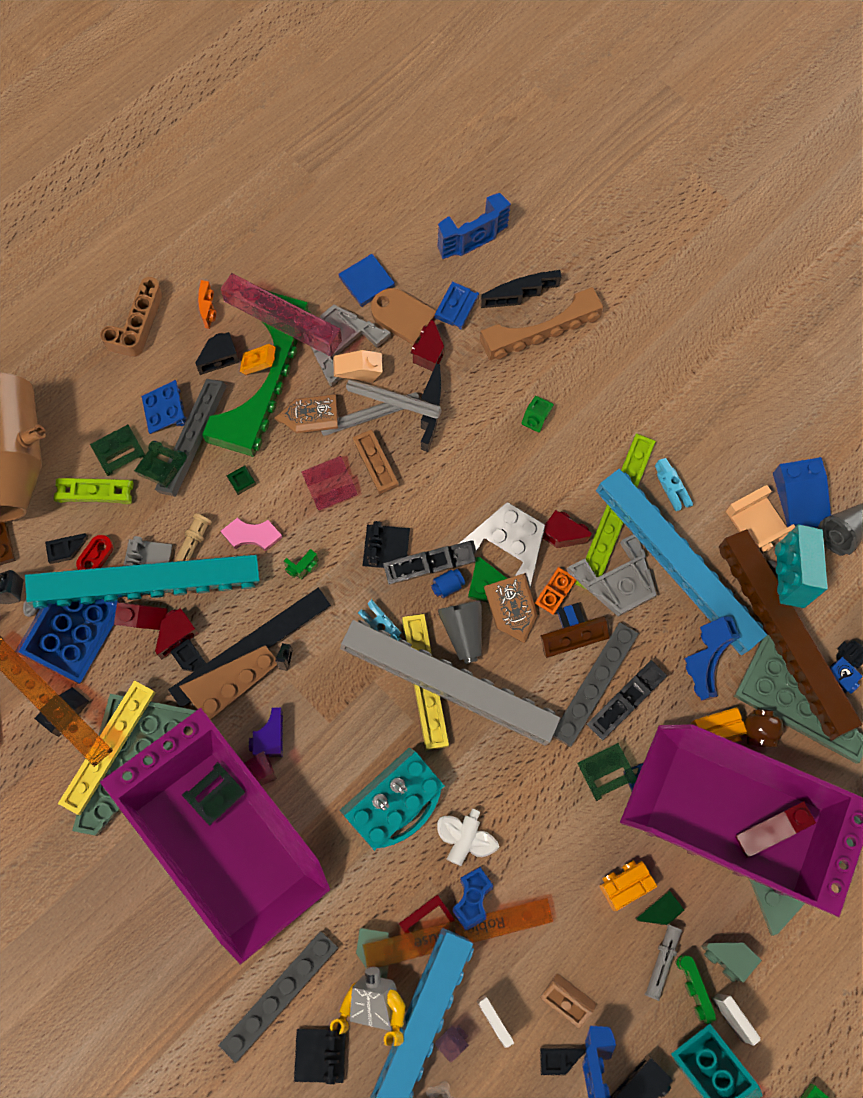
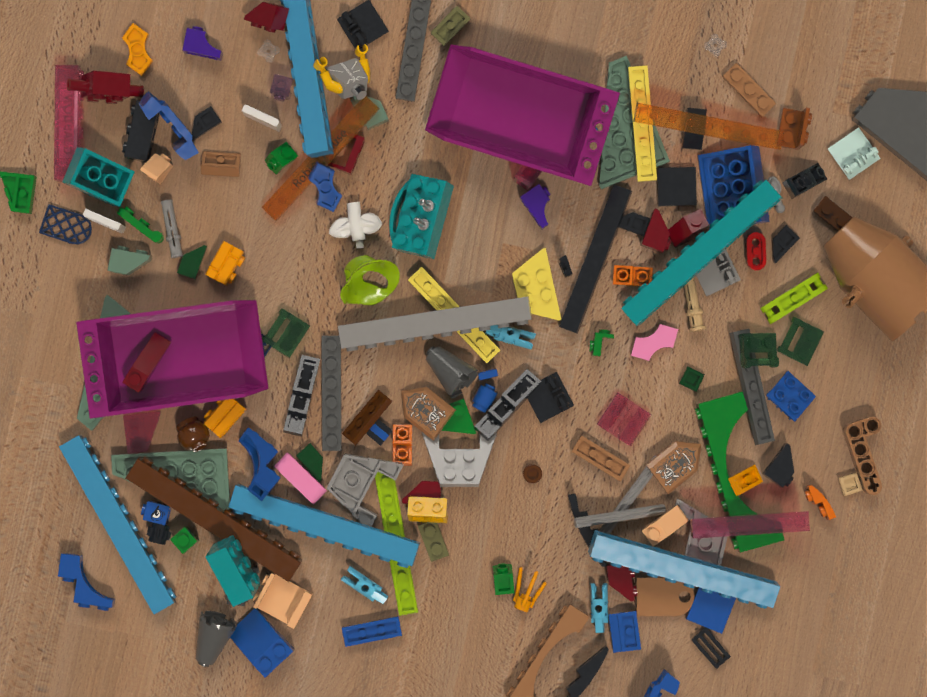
camera: 145 degrees right, 15 degrees up
(122, 665) = (677, 186): none -> black tile
(169, 305) = (850, 484): none -> tan tile
(219, 799) = (539, 136): clear green plate -> none
(224, 684) = (594, 218): medium nougat wing -> none
(226, 608) = (632, 275): none -> orange slope
(227, 989) = (450, 26): none -> olive plate
(324, 661) = (536, 281): none -> light yellow wing
(369, 318) = (683, 569): none -> dark azure brick
(388, 235) = (700, 635): none -> black tile
(430, 602) = (487, 374): none -> blue tile
(448, 488) = (532, 473): none -> reddish brown tile
(465, 337) = (598, 617): none -> medium azure hinge
(500, 963) = (280, 158): none -> green bracket
(501, 764) = (360, 292): none -> lime piece
(530, 383) = (524, 601): none -> light orange plant
(570, 512) = (427, 509): none -> yellow bracket
(581, 487) = (433, 541): none -> olive plate
(643, 1041) = (157, 167): none -> light nougat slope
(654, 631) = (312, 461): none -> dark green tile
(676, 621) = (300, 478): none -> bright pink beam
(690, 442) = (371, 631): none -> blue plate
(797, 1066) = (70, 226): none -> dark blue window
(819, 762) = (140, 430): none -> clear pink wing
(828, 632) = (184, 540): none -> green brick

